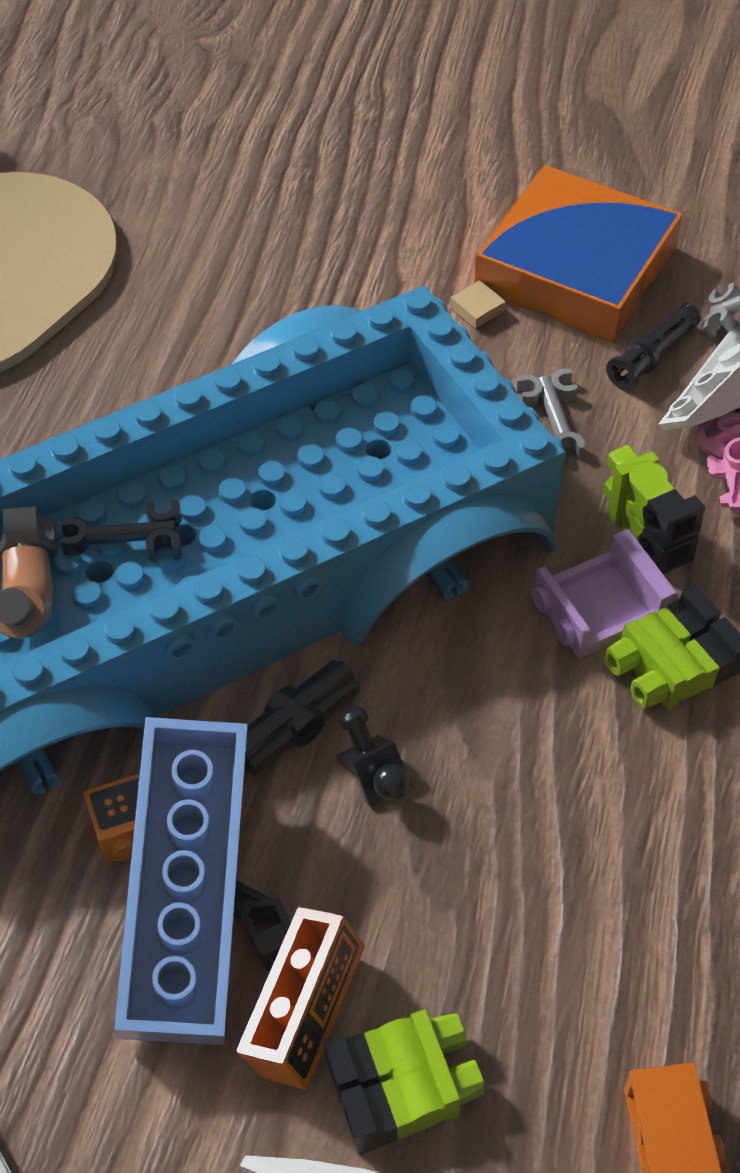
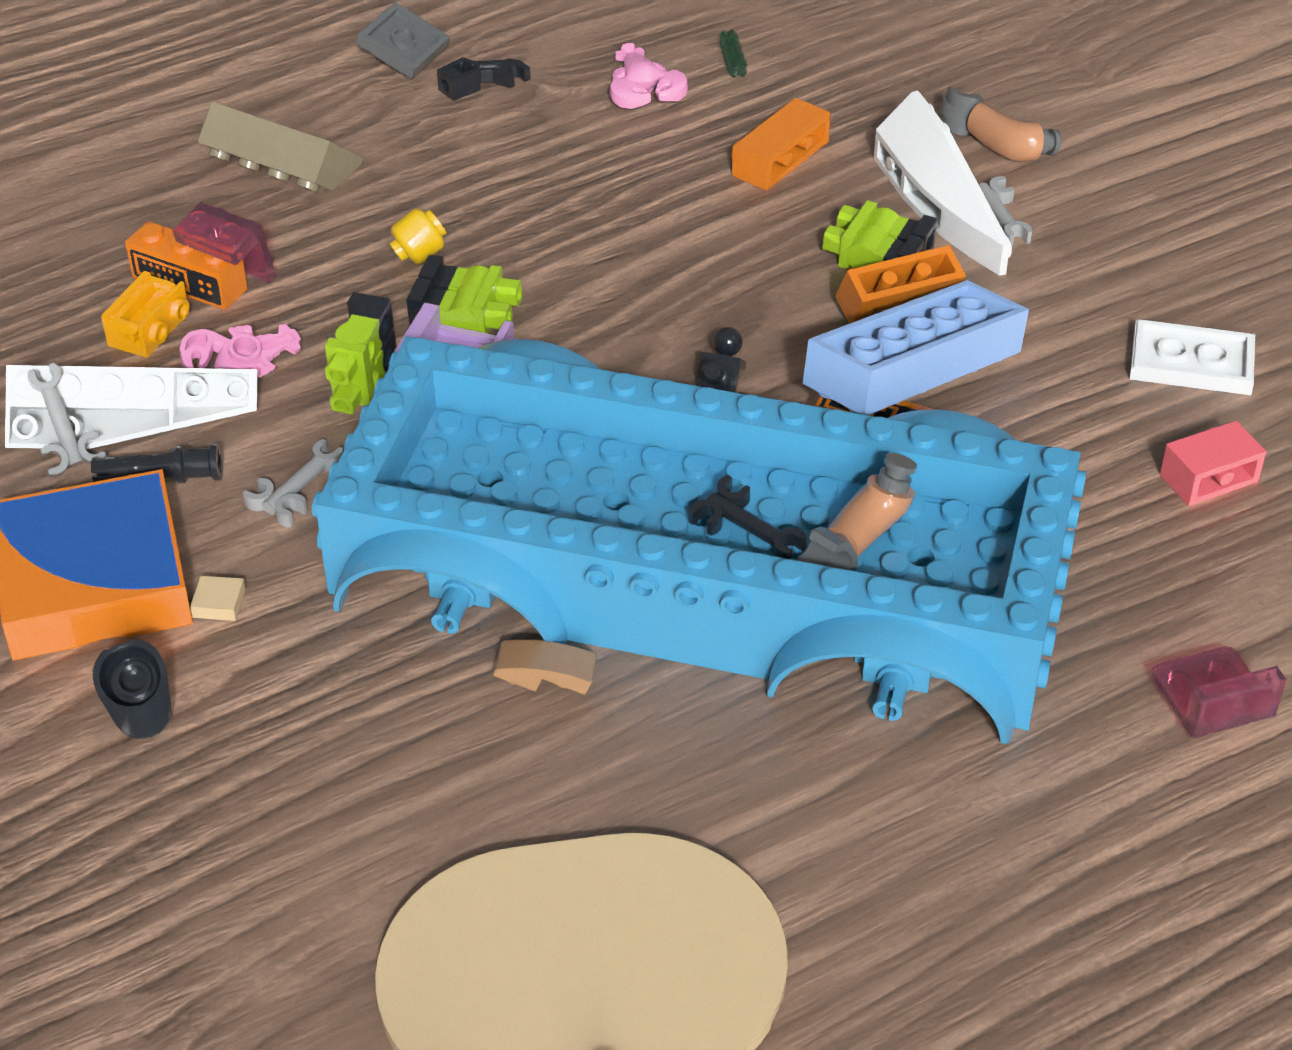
camera: 135 degrees left, 10 degrees down
(432, 211) = (134, 688): none -> black piece

